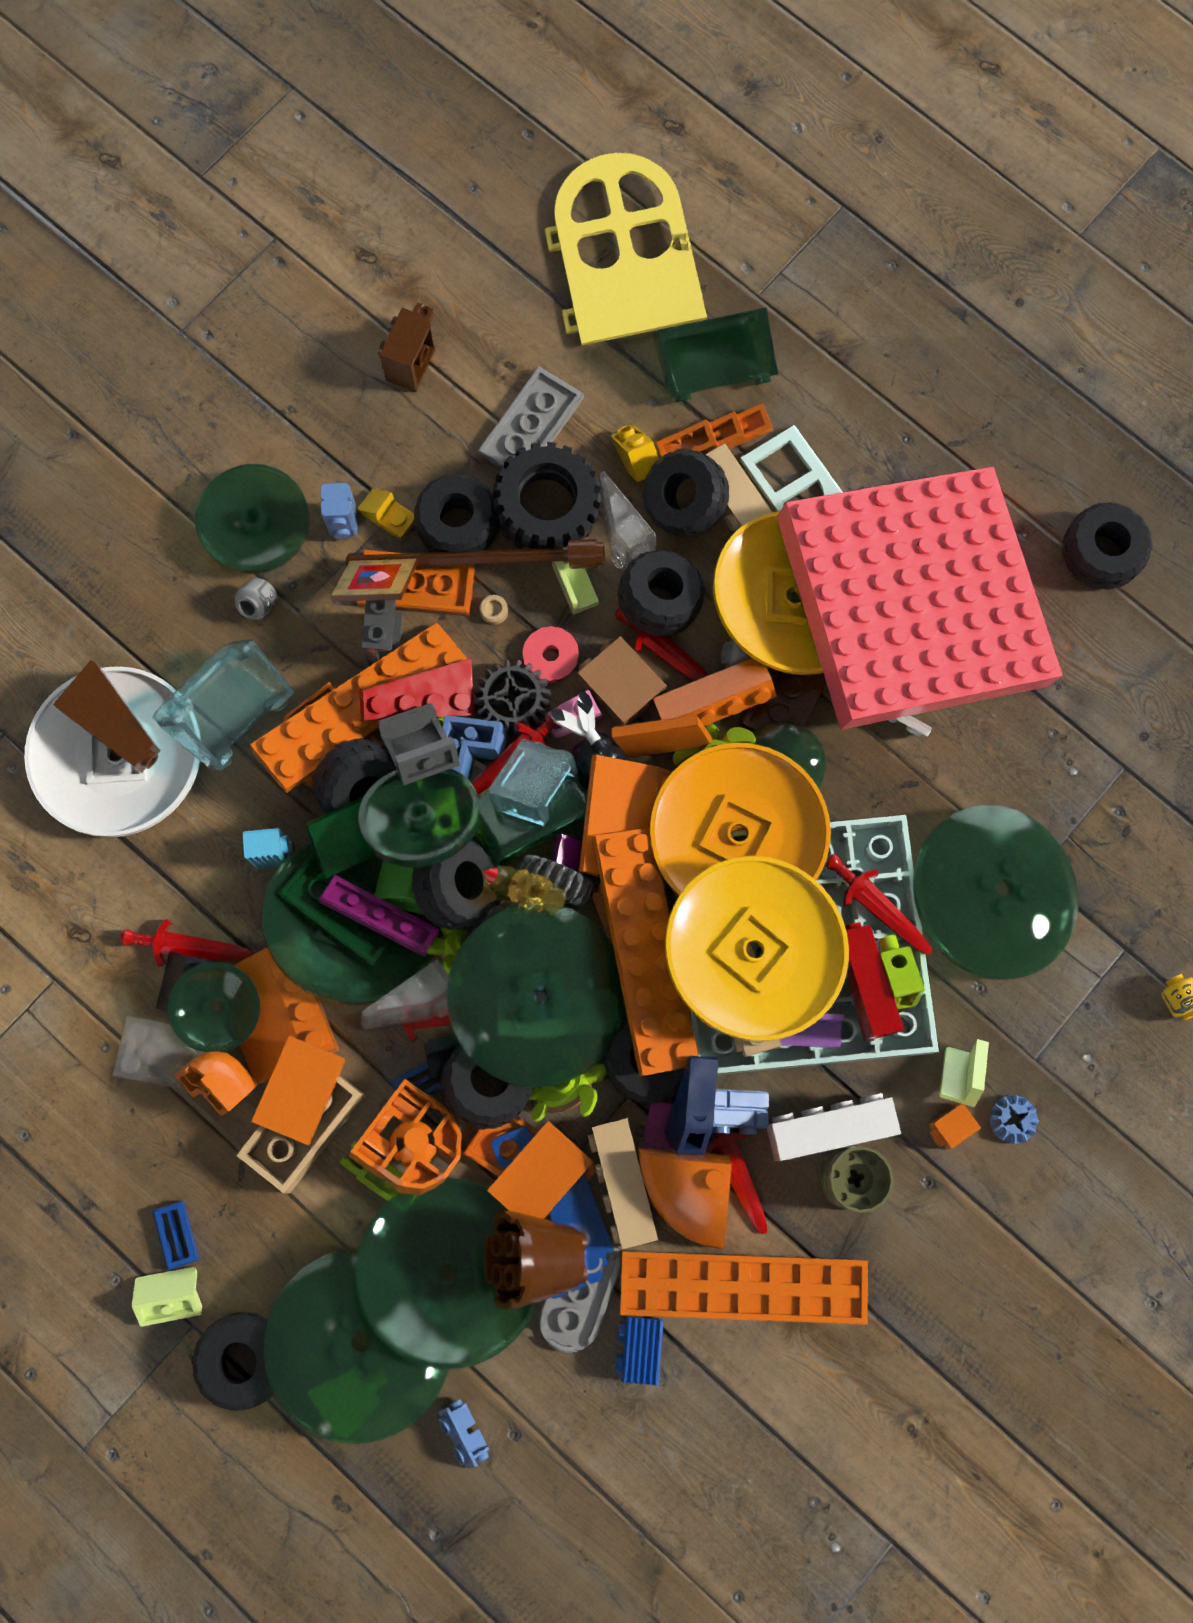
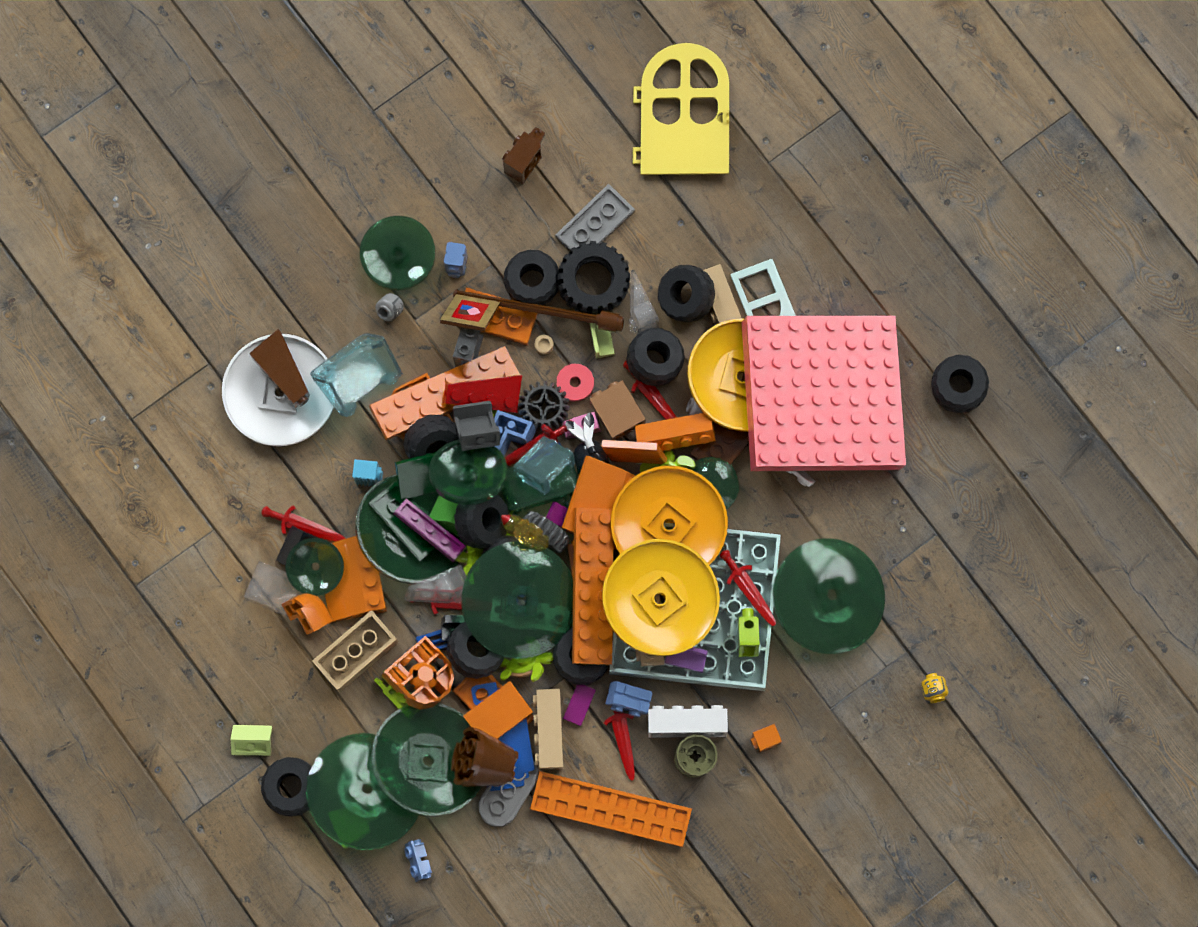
camera: 15 degrees right, 0 degrees up
(187, 1231) = (264, 720): blue tile -> none
(299, 1090) = (358, 628): orange tile -> none
(387, 513) = (487, 265): yellow slope -> none
(635, 451) = (660, 256): yellow slope -> none
(640, 1350) = (538, 832): blue brick -> none
(689, 1192) = (588, 743): orange brick -> none
(693, 1107) = (602, 690): dark blue slope -> none
(716, 353) = (728, 198): clear green windscreen -> none
(729, 429) = (723, 254): orange slope -> none
(870, 986) = (728, 635): red slope -> none
(964, 1074) = (779, 706): yellowish green panel -> none
(1001, 1113) = (802, 750): medium blue gear -> none

